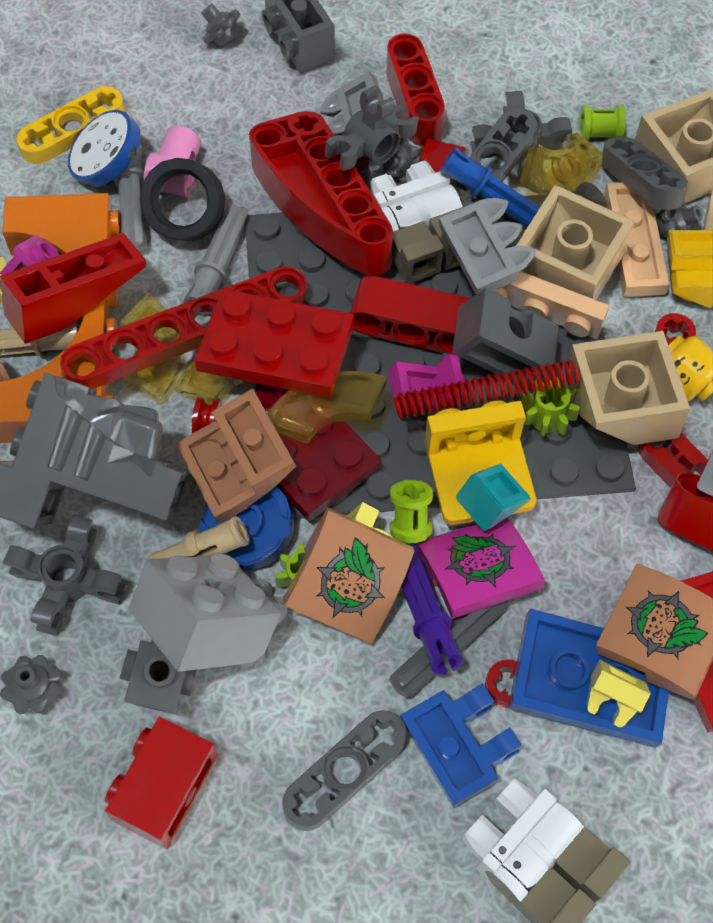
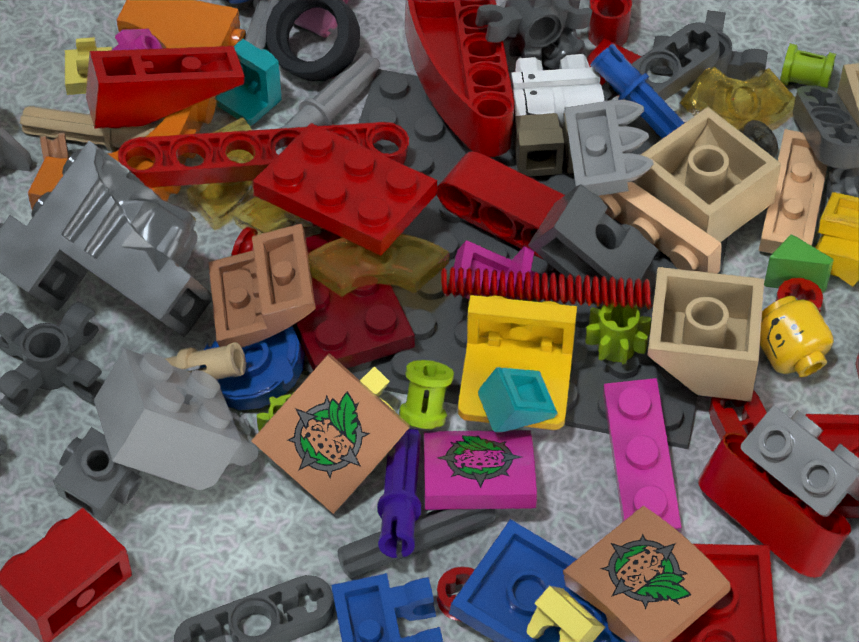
camera: 20 degrees right, 10 degrees down
(159, 263) = (260, 87): none -> teal bracket
(606, 512) = (640, 449): none -> dark pink plate
(666, 299) = (798, 260): none -> bright green slope

